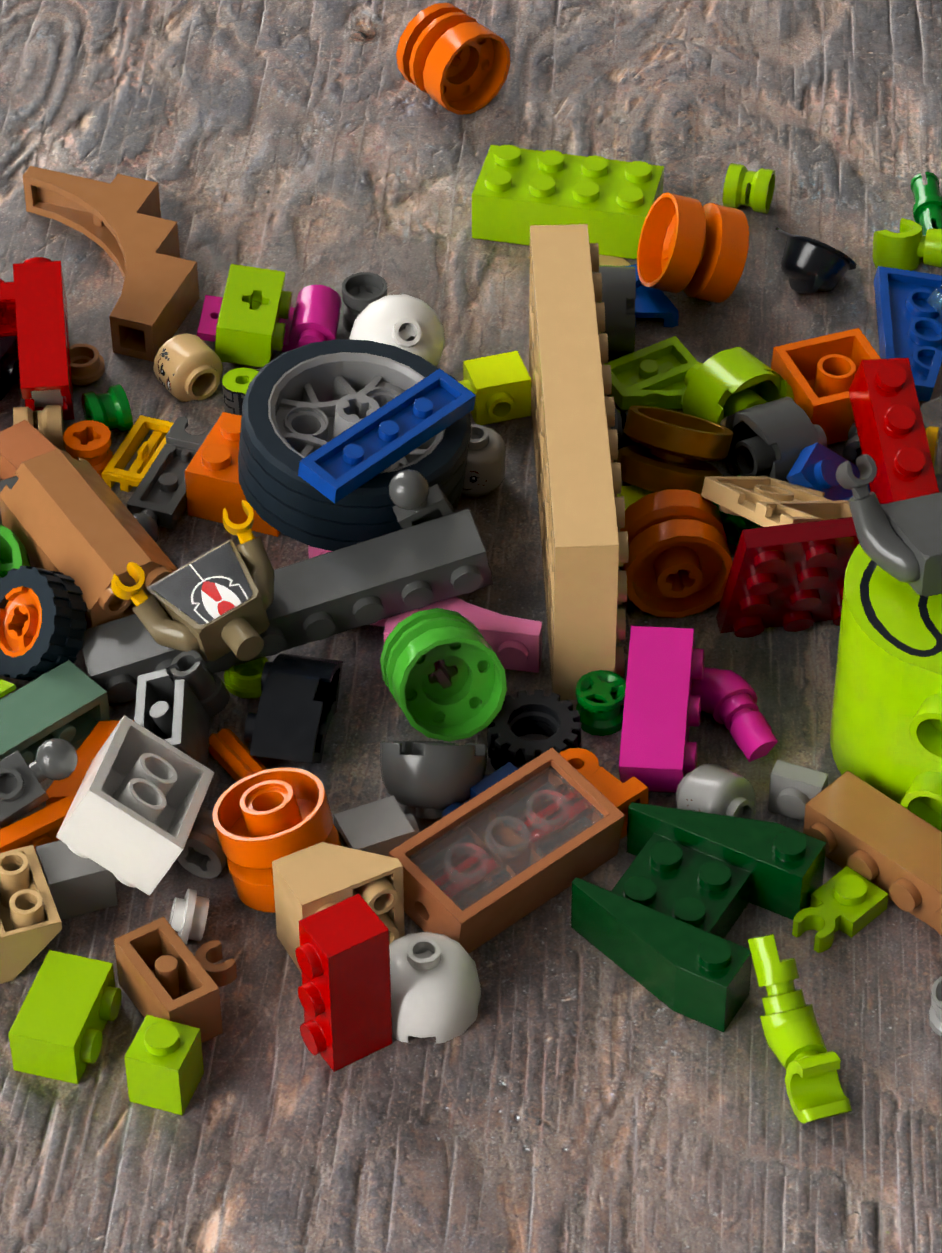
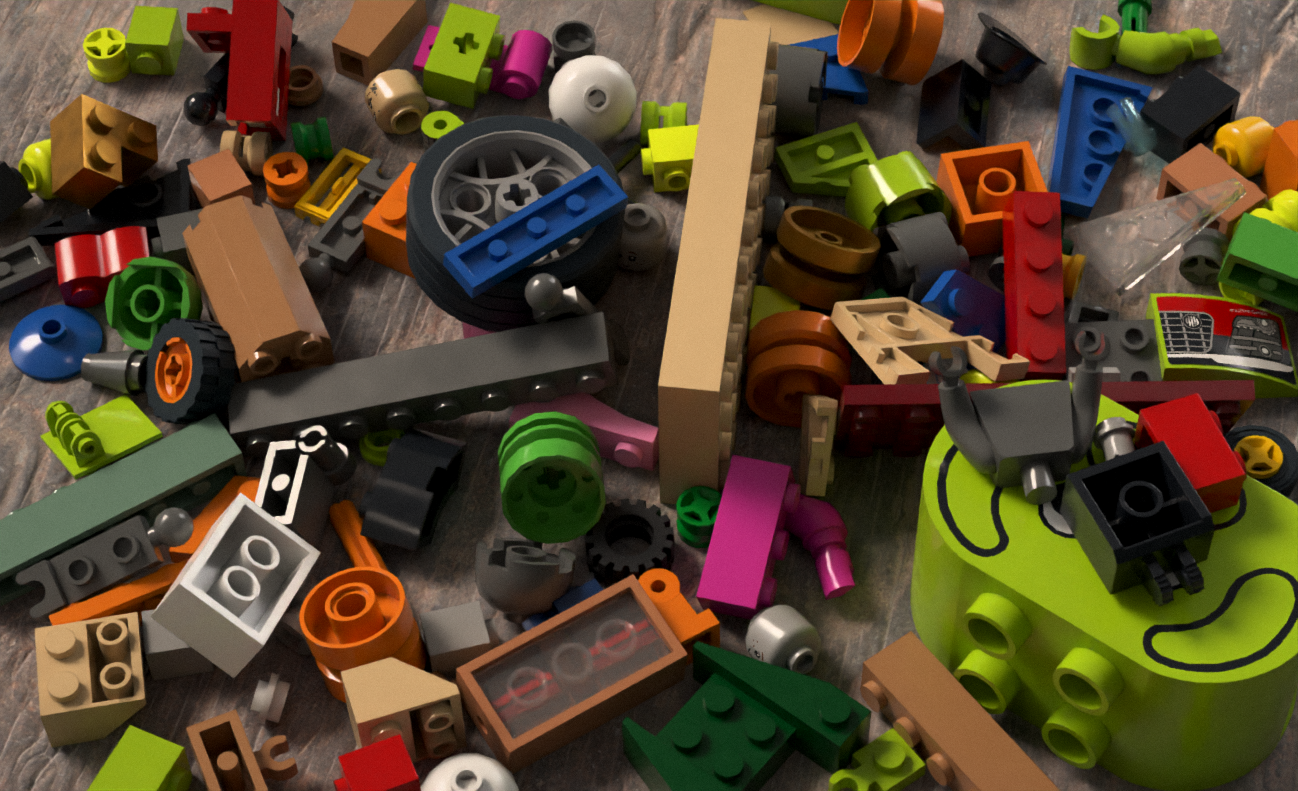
camera: 10 degrees right, 10 degrees up
(211, 602) = (348, 378): torso -> none
(461, 350) = (651, 113): none -> lime wheel
(710, 608) = (816, 441): none -> tan wing
(767, 312) = (954, 106): none -> black panel
(793, 787) = (860, 638): light grey plate -> none

